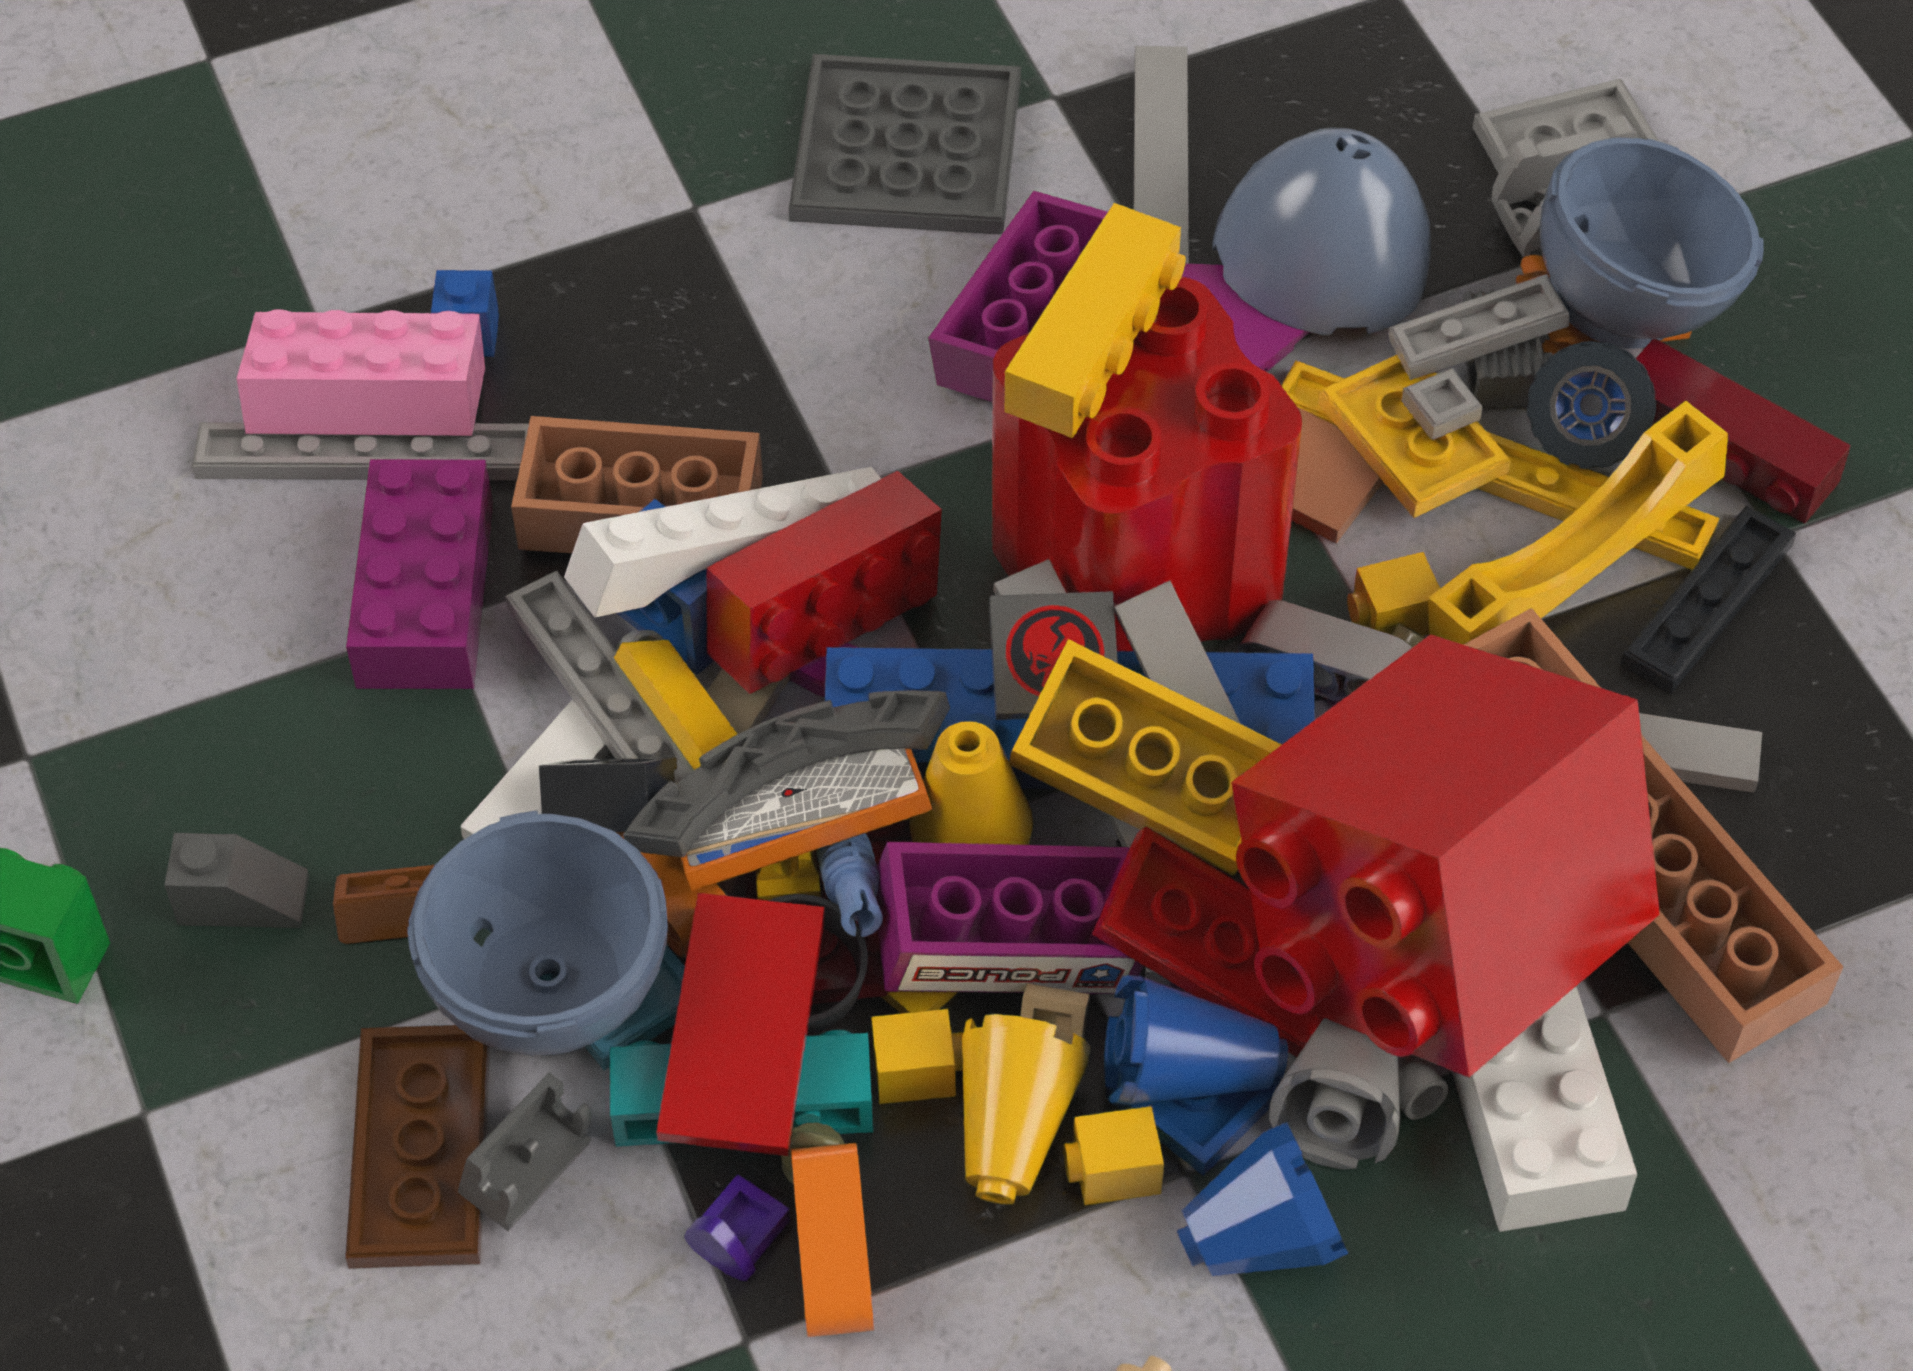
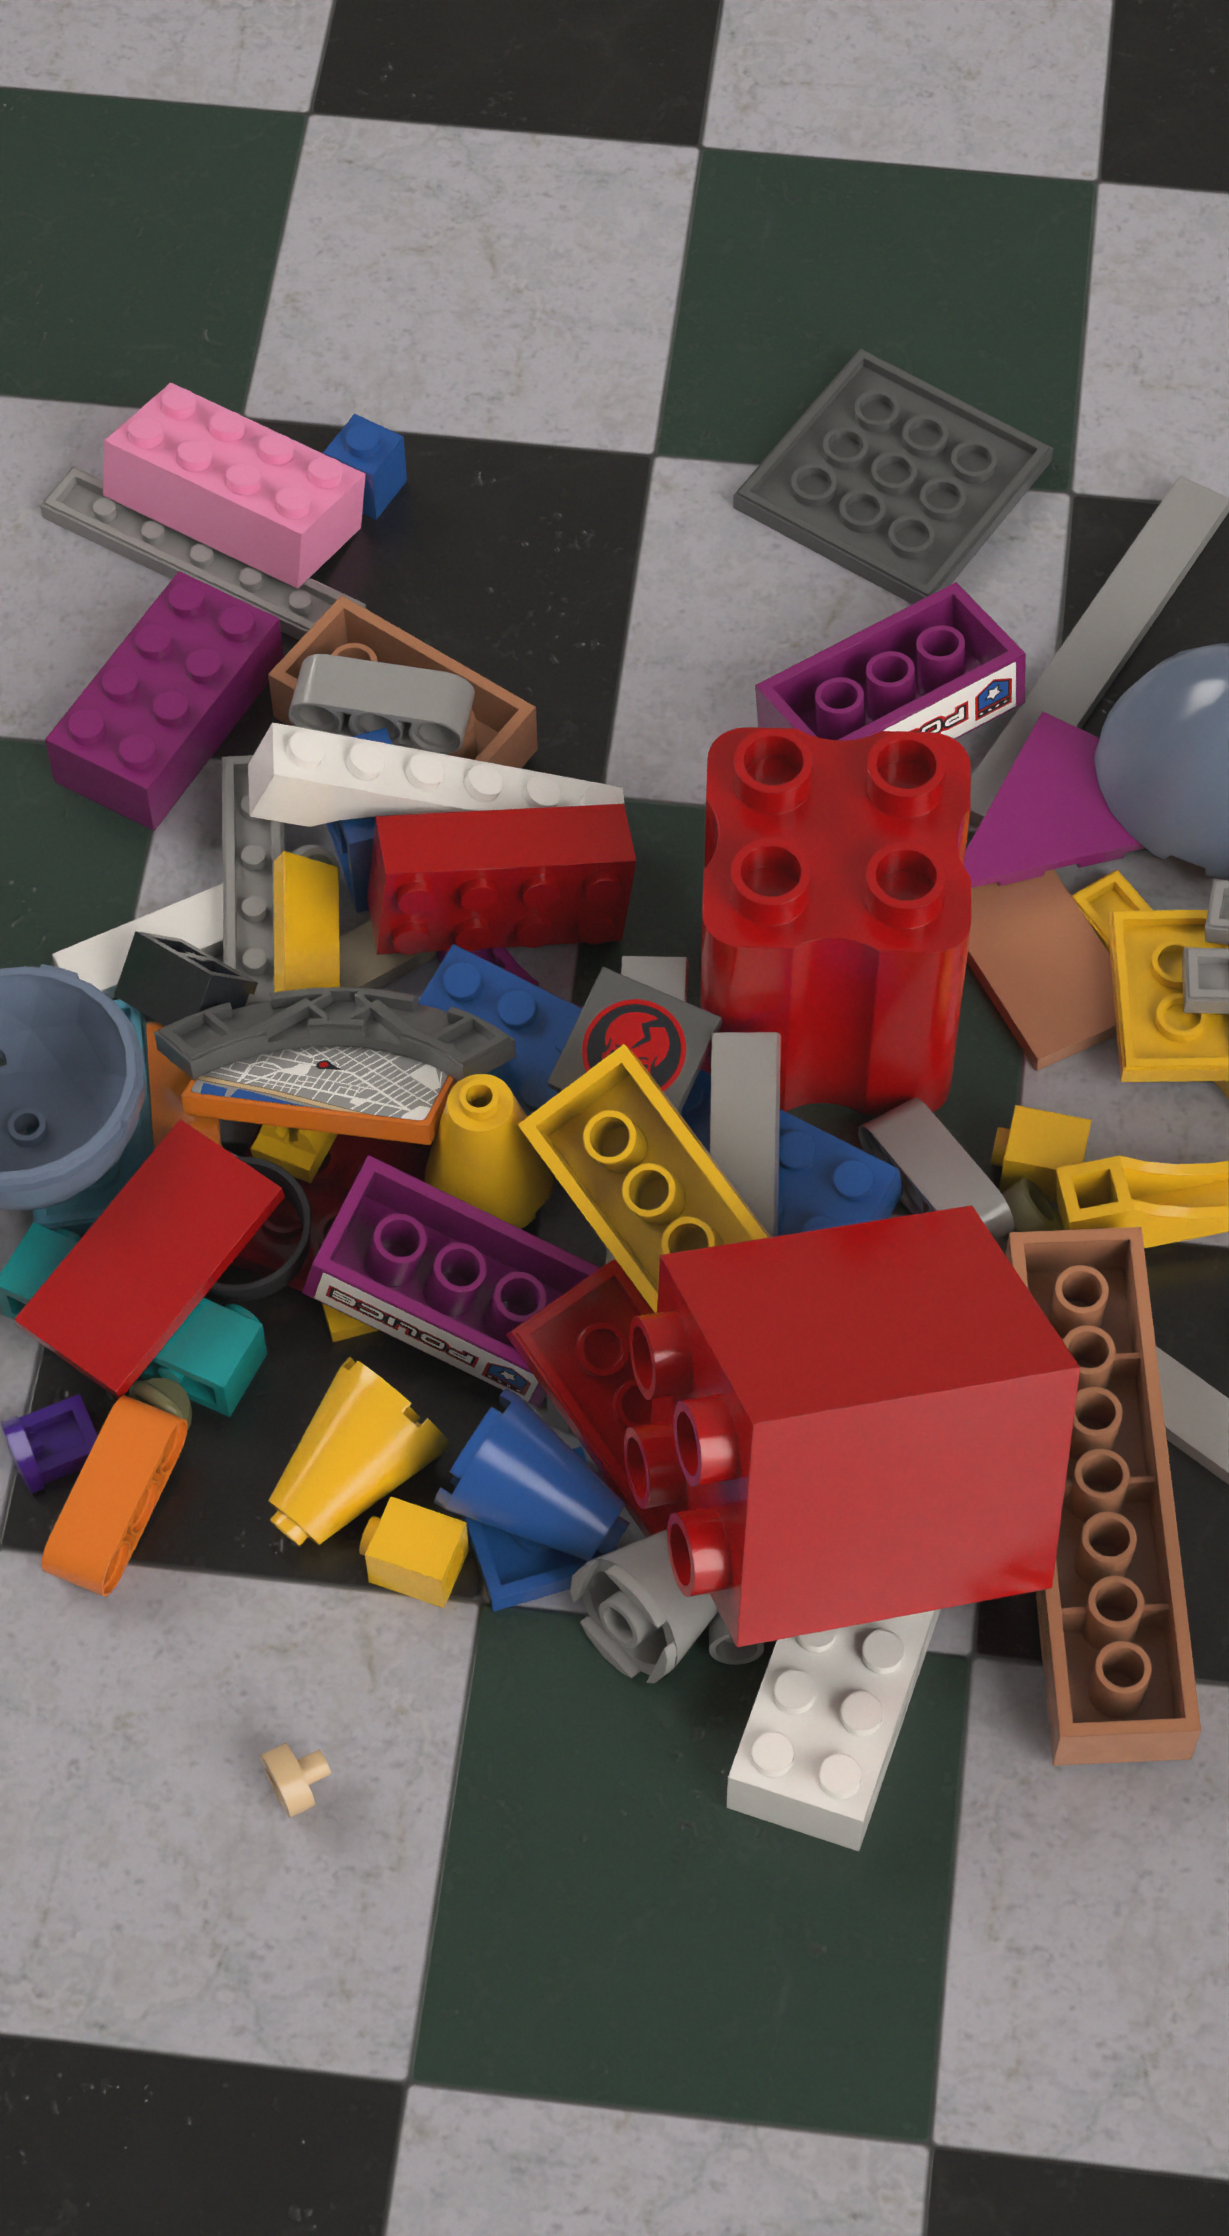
camera: 30 degrees right, 5 degrees up
(627, 478) = (360, 696): none -> light grey beam
(852, 882) = (328, 1177): medium blue hinge -> none
(915, 1056) = (295, 1363): yellow brick -> none
(1058, 1007) = (446, 1396): tan tile -> none
(1093, 320) = (809, 743): yellow brick -> none
(1261, 1213) = (508, 1673): blue cone -> none

